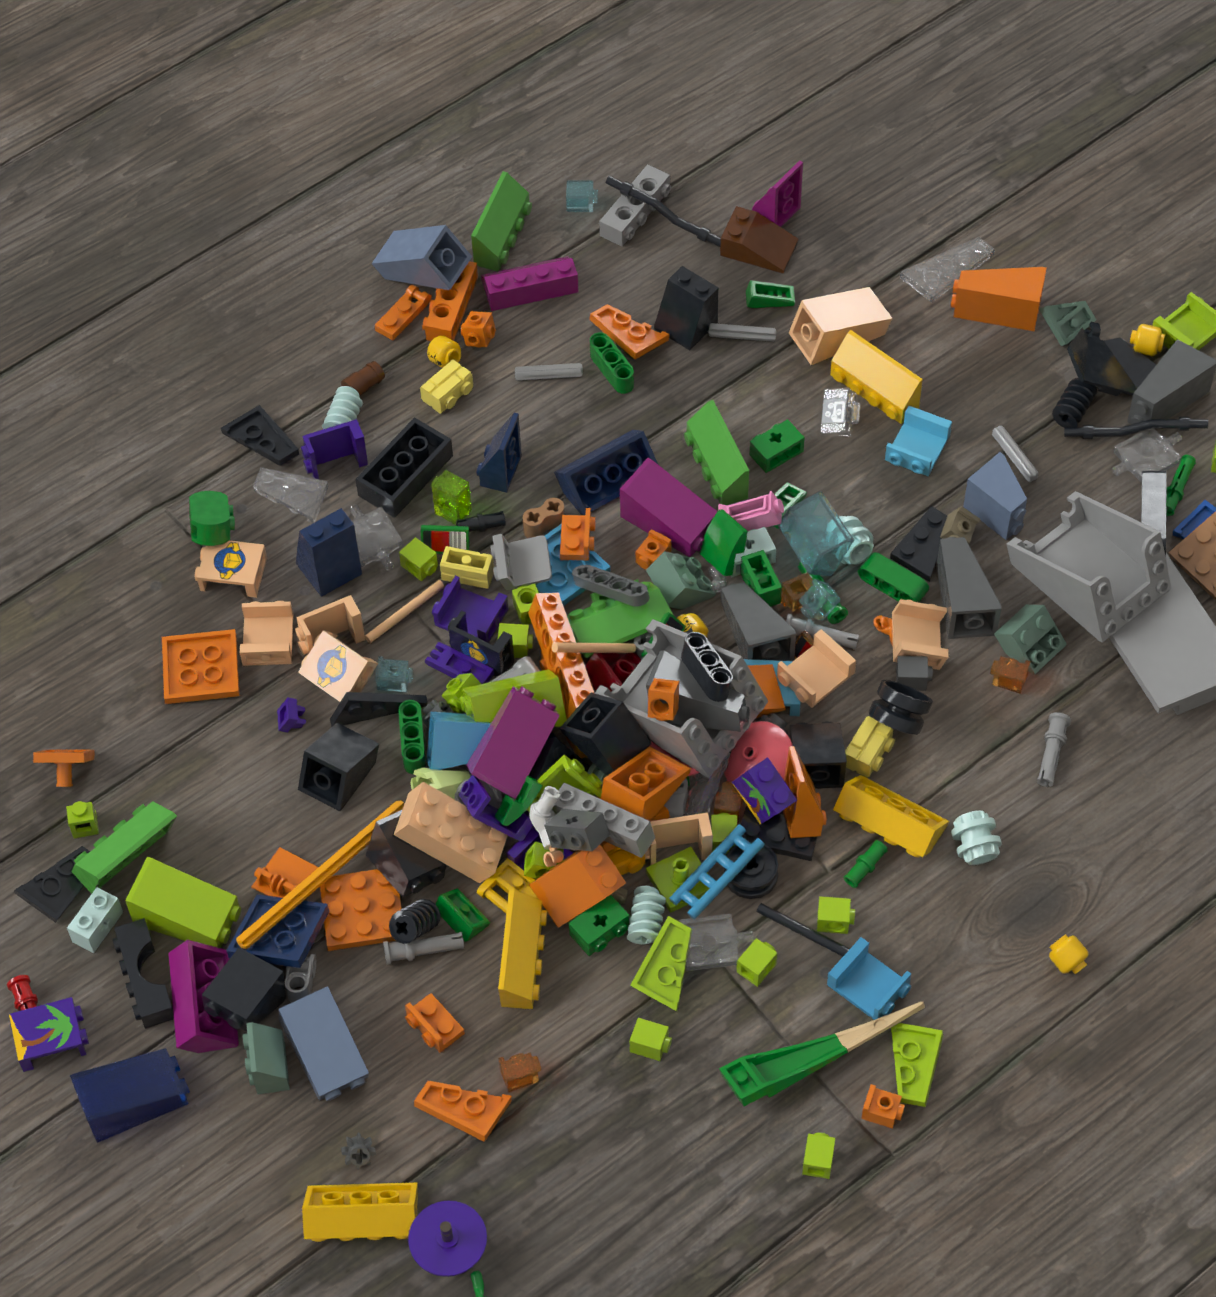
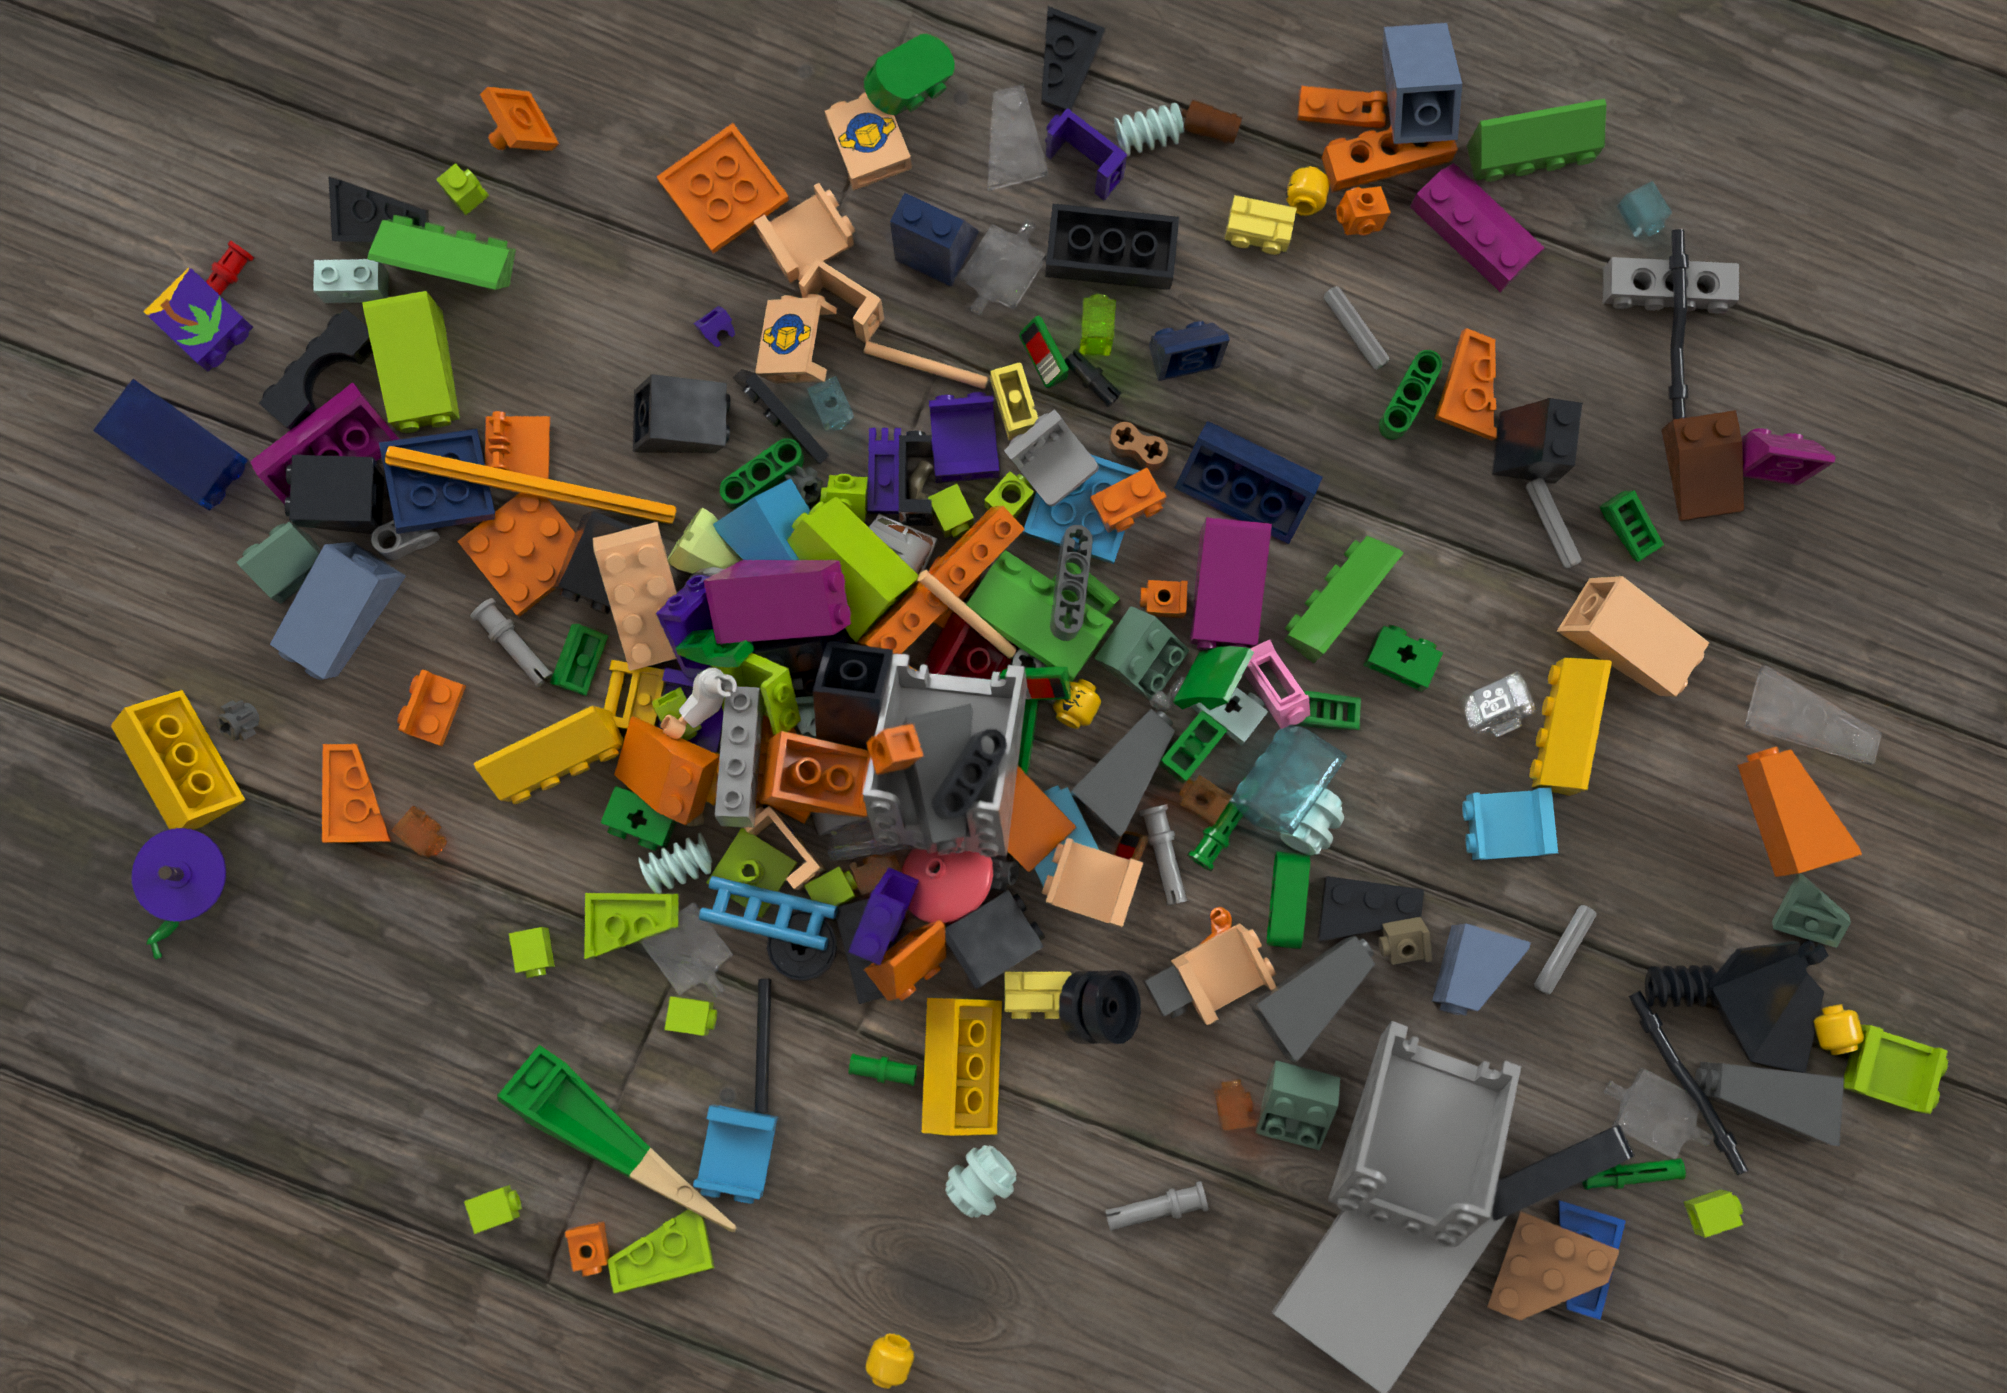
camera: 55 degrees right, 25 degrees up
(414, 921) = (526, 617): black piece -> none
(418, 559) = (999, 339): lime brick -> none
(577, 830) = (698, 739): dark grey brick -> none
(819, 600) = (1191, 830): clear light blue brick -> none
(834, 915) = (795, 1071): lime brick -> none

